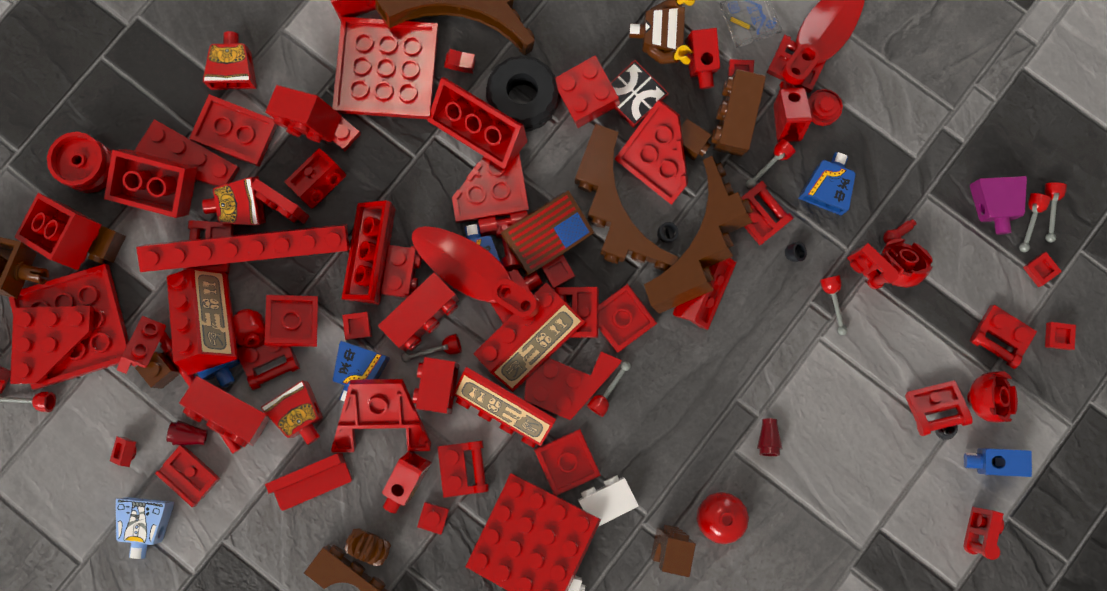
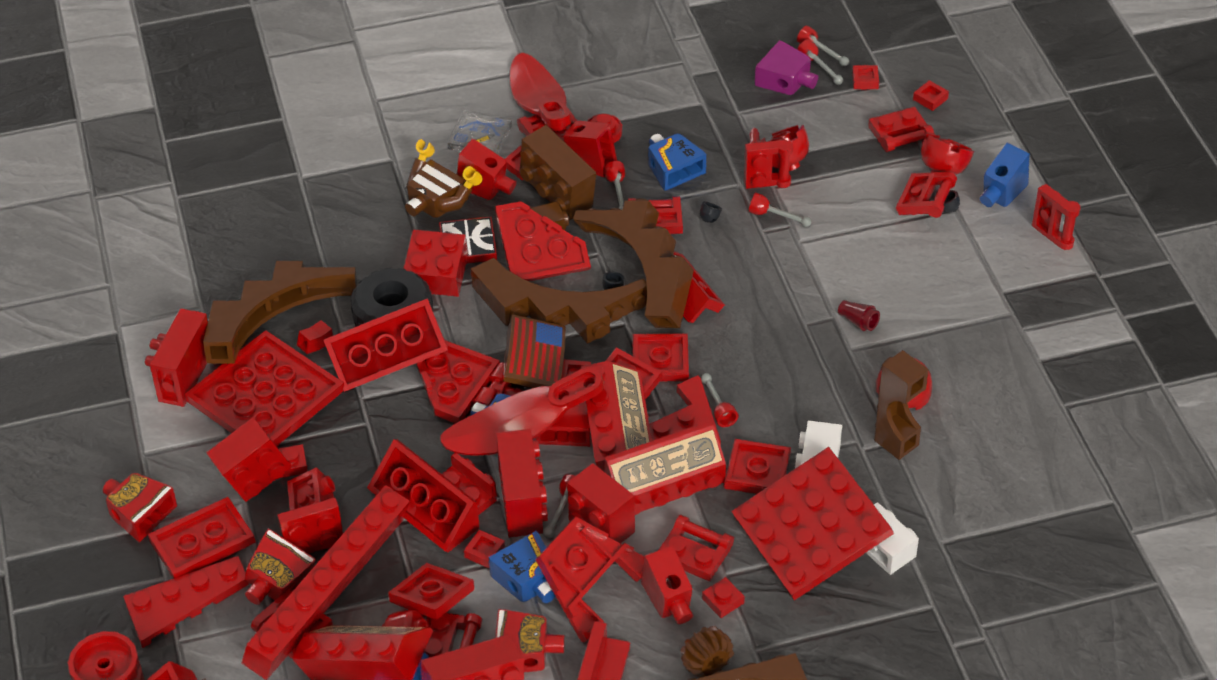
camera: 50 degrees left, 35 degrees down
(150, 183) = (188, 620): red brick -> none

